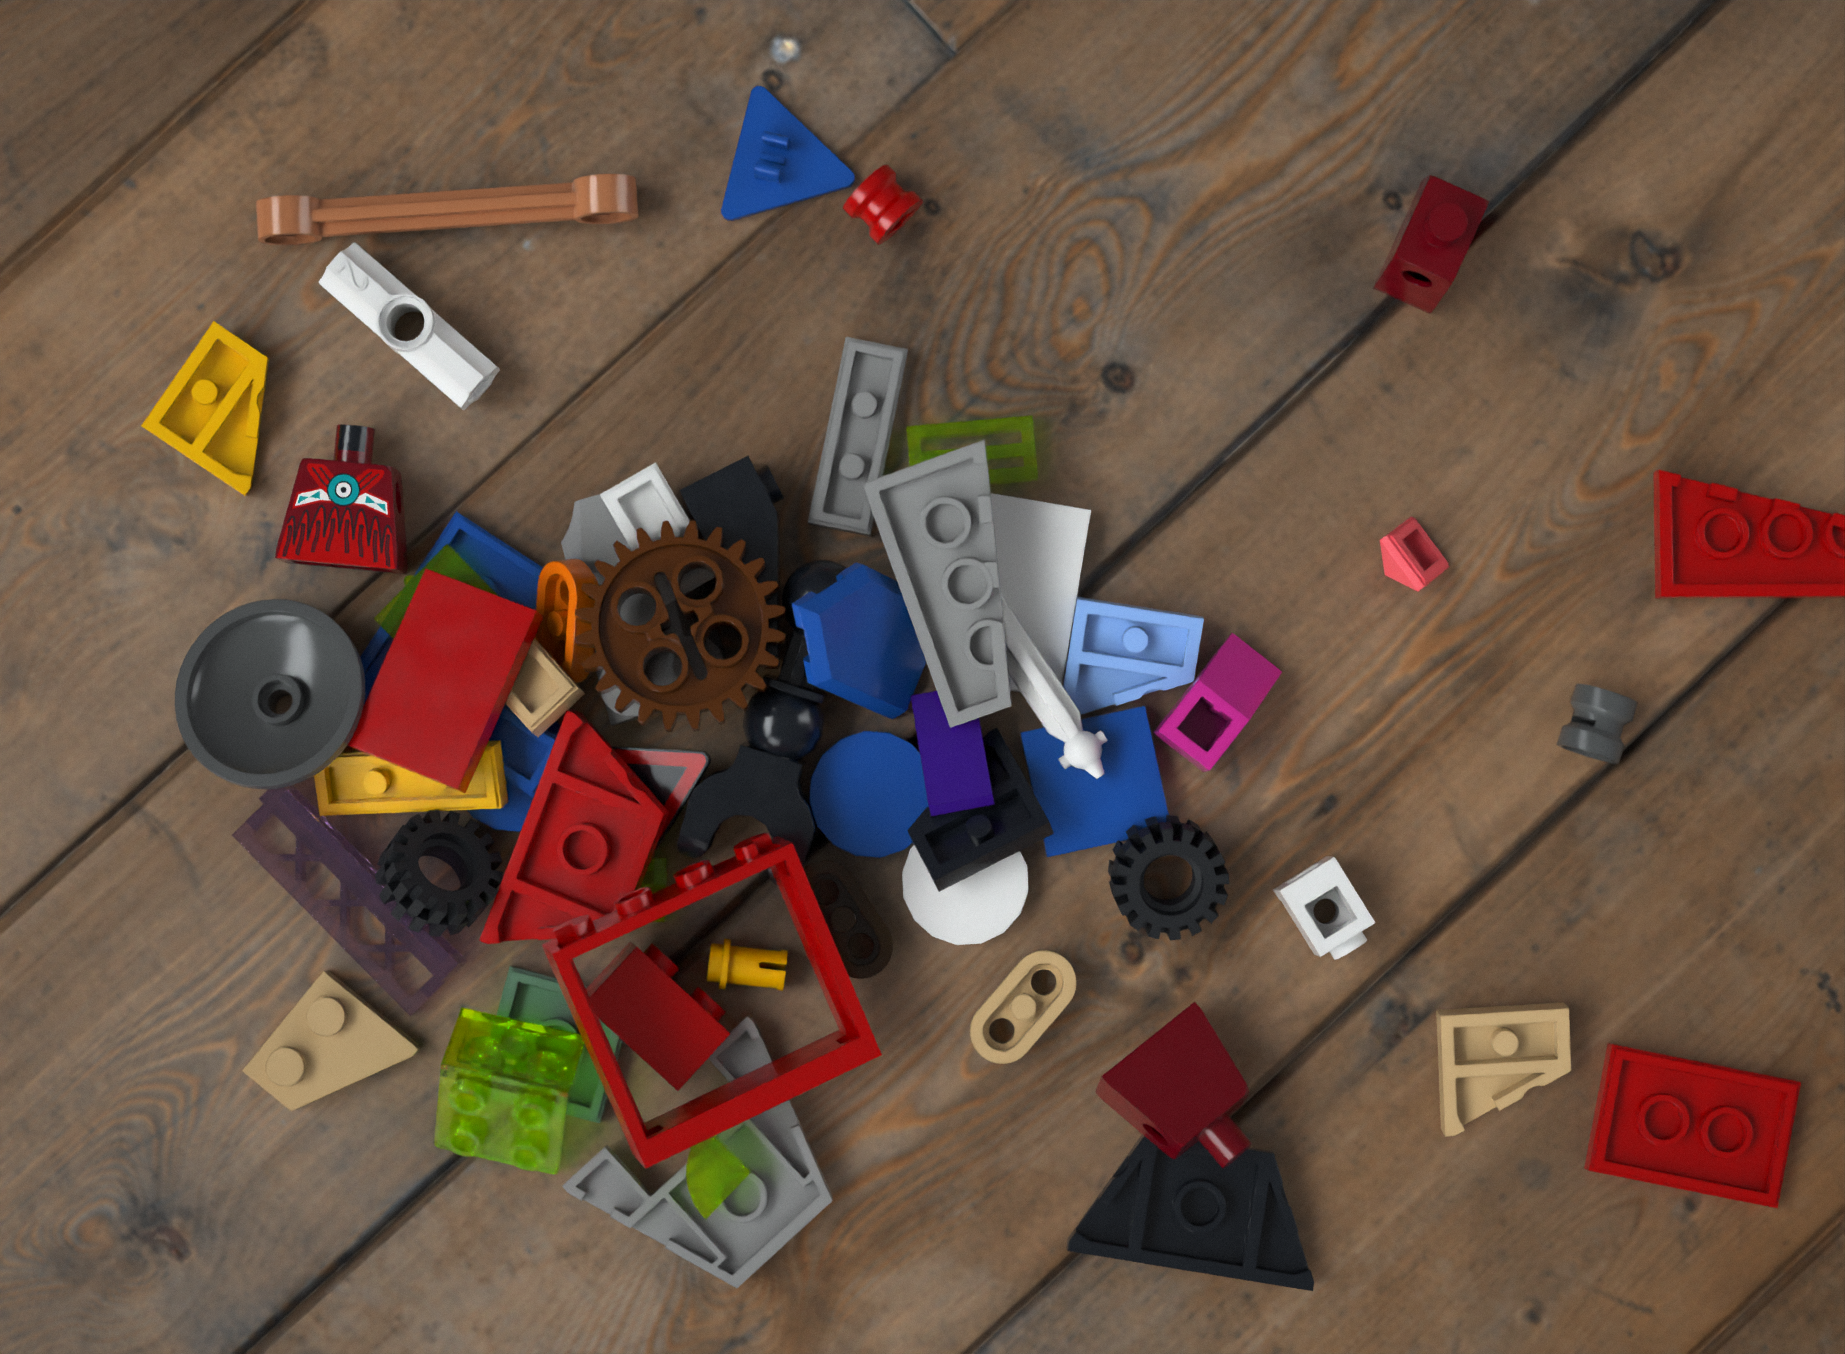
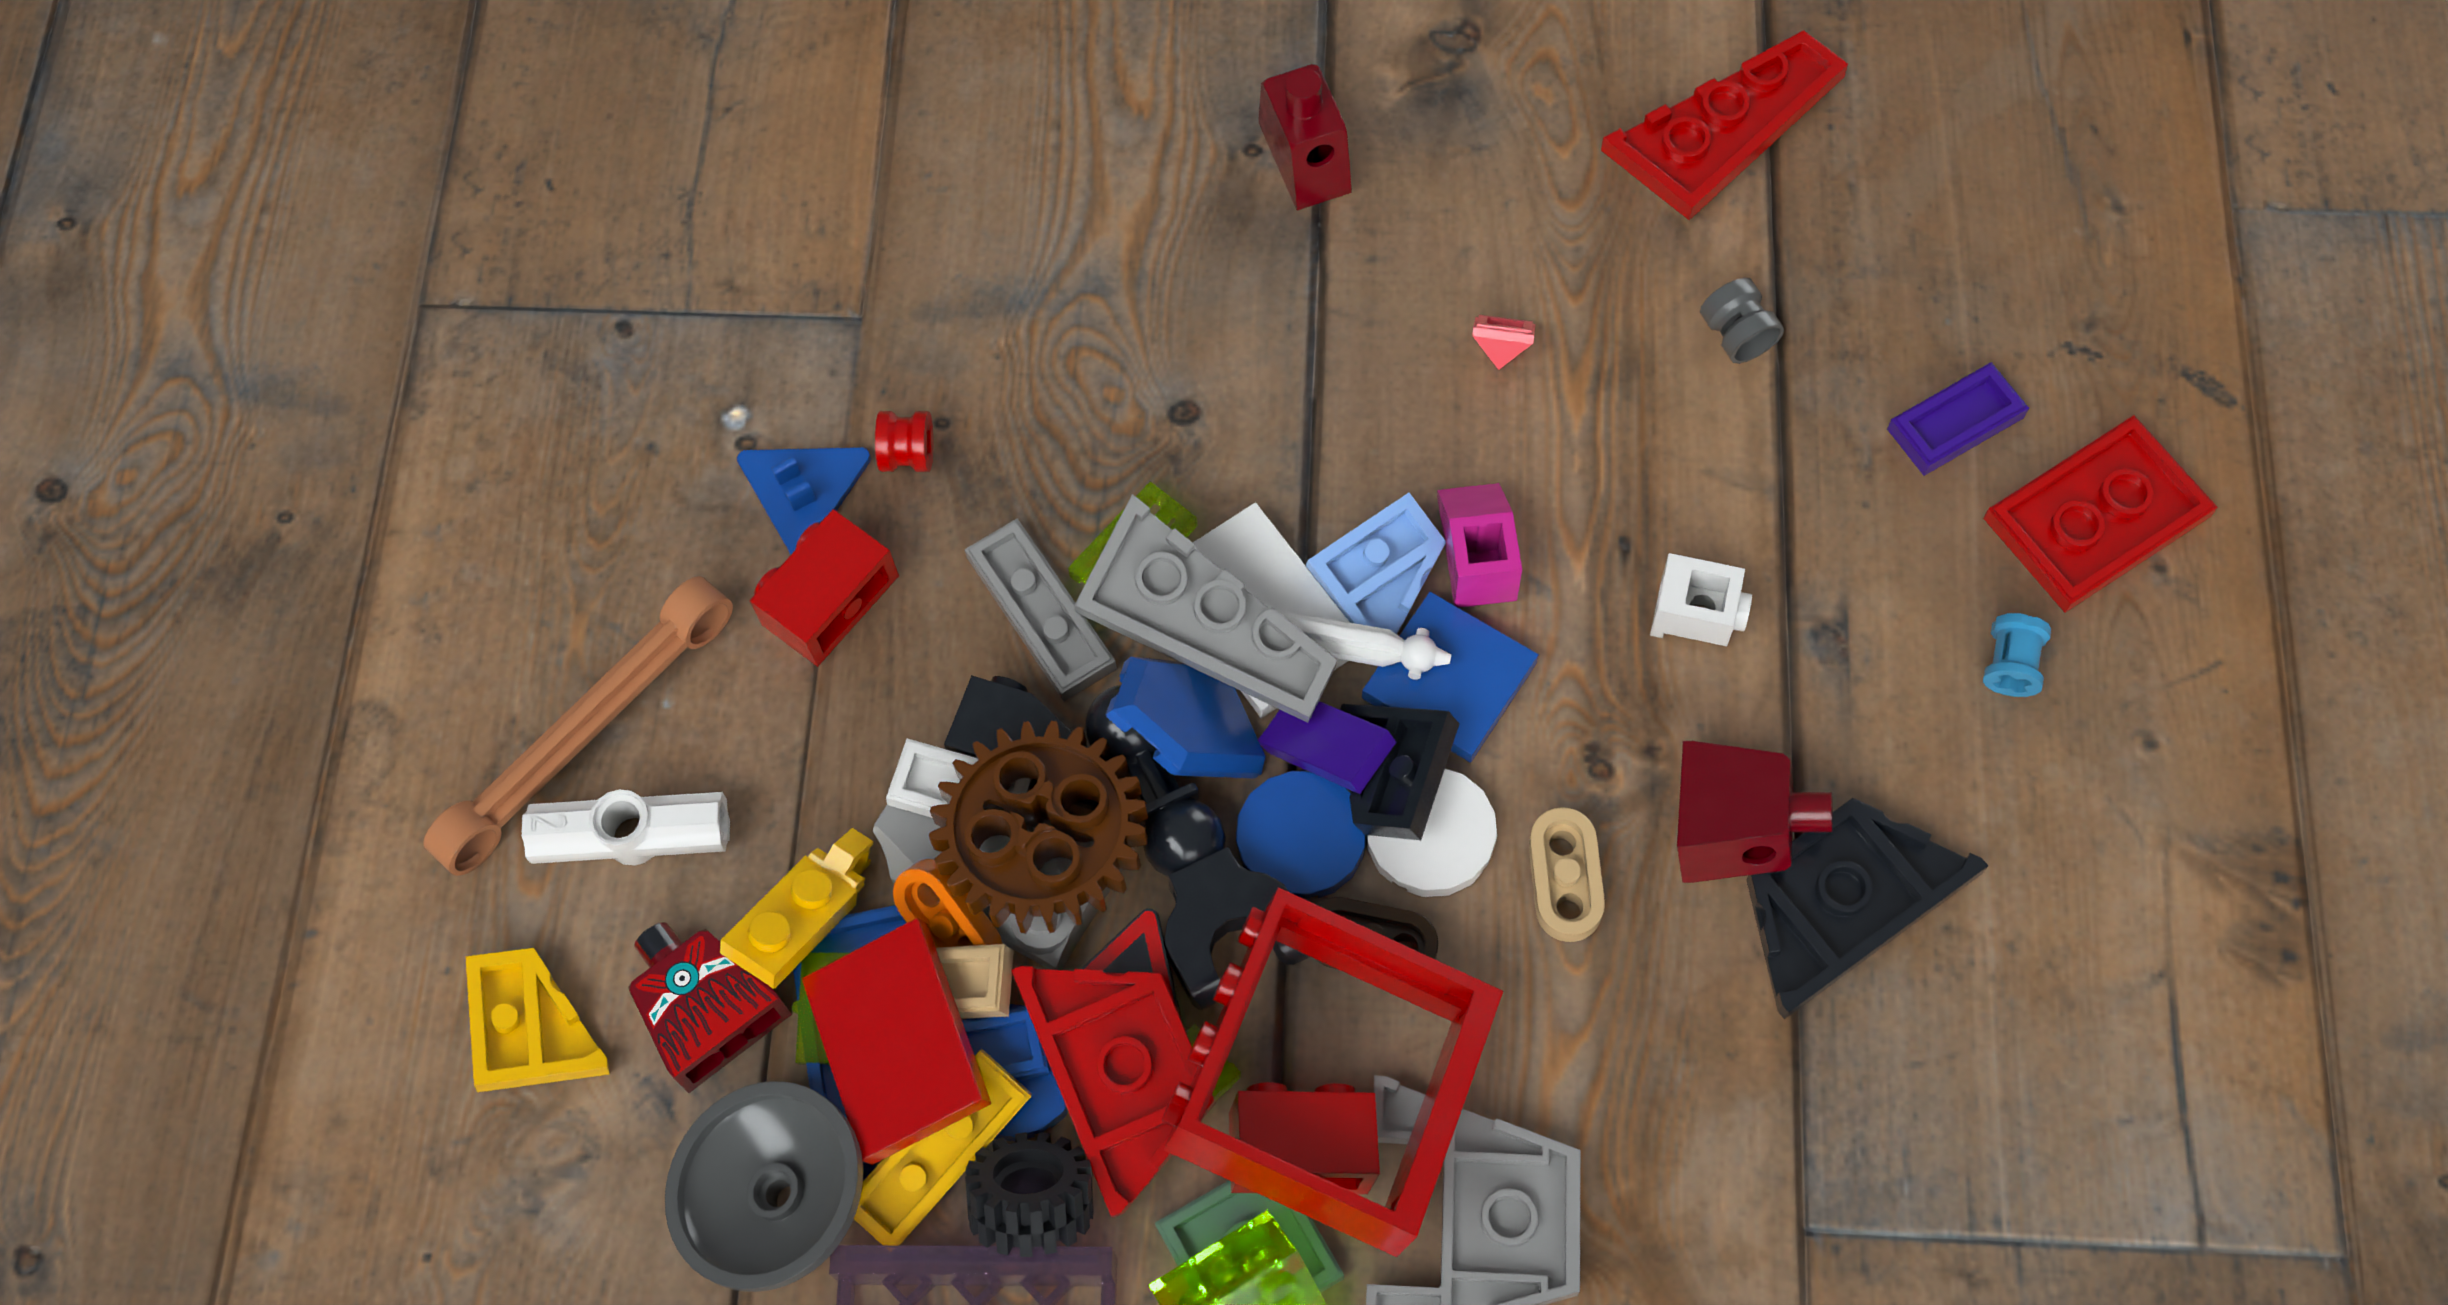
camera: 40 degrees left, 20 degrees down
(469, 514) = (799, 910): none -> yellow hinge
(713, 1174) = (1470, 1214): clear neon green tile -> none
(714, 267) = (824, 586): none -> red brick
(743, 964) = (1335, 1044): yellow pin -> none
(1173, 914) = (1596, 657): black tyre -> none
(1496, 1056) = (1925, 591): tan wing -> none
(1506, 1168) = (2017, 655): none -> dark azure bush
(1674, 953) = (1957, 418): none -> dark purple tile

